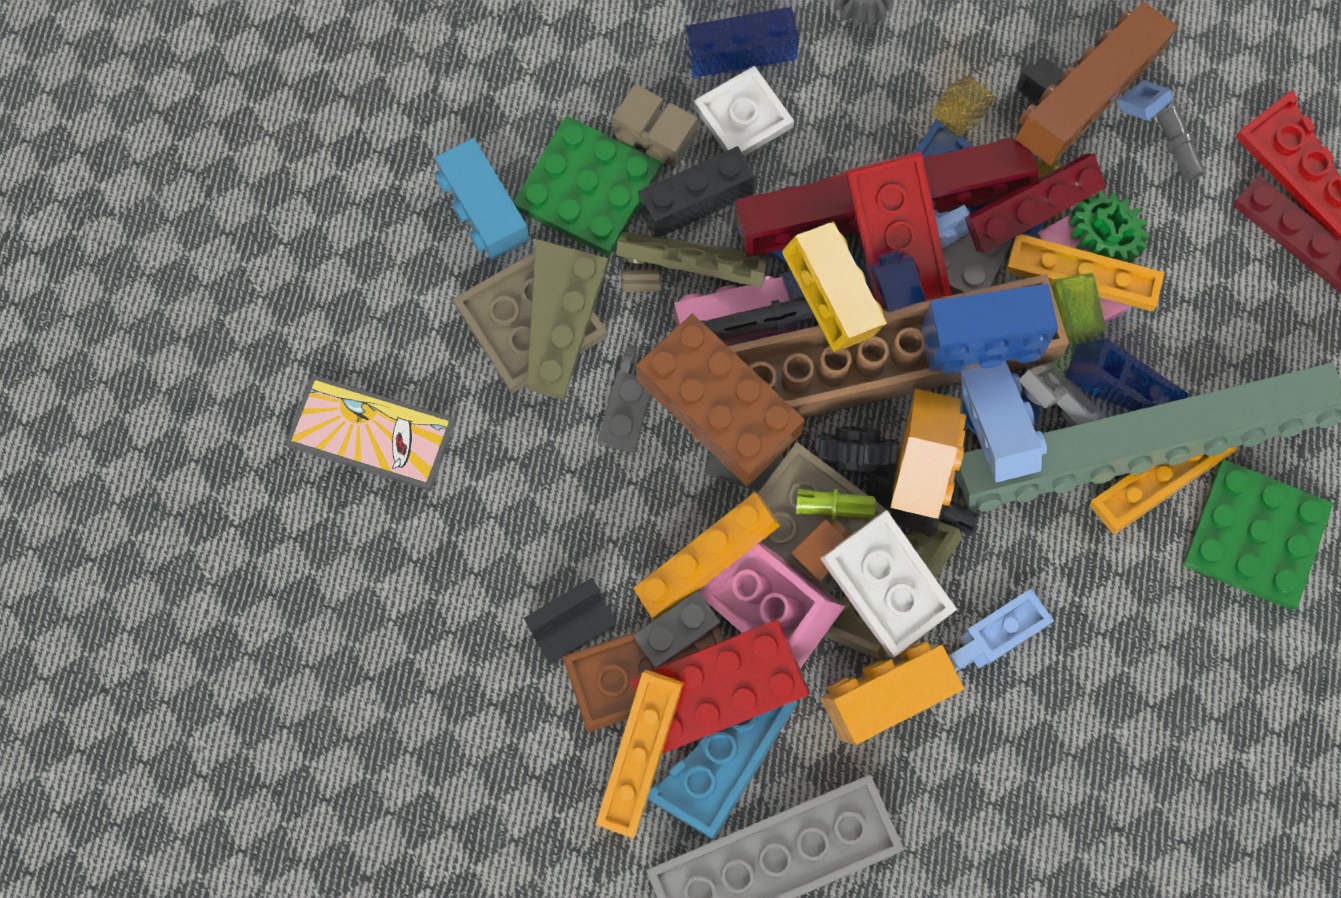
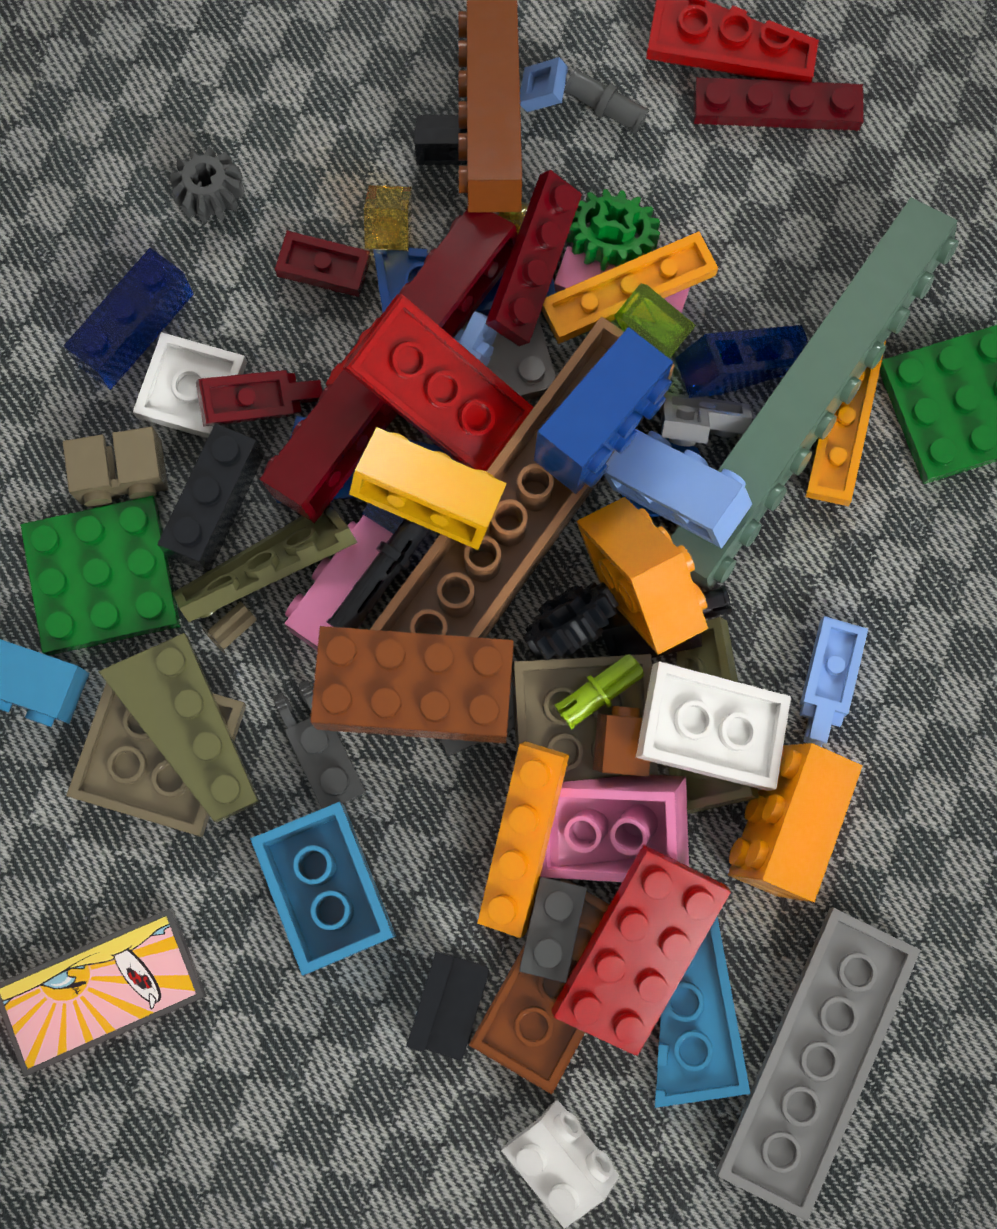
camera: 45 degrees left, 5 degrees up
(556, 777) = (562, 1164): none -> white bracket
(557, 482) = (322, 888): none -> dark azure brick
(639, 753) = (622, 1077): light orange plate -> none
(777, 150) = (253, 397): none -> dark red hinge
(896, 103) = (323, 263): none -> dark red plate
(897, 281) = (477, 434): clear blue brick -> none

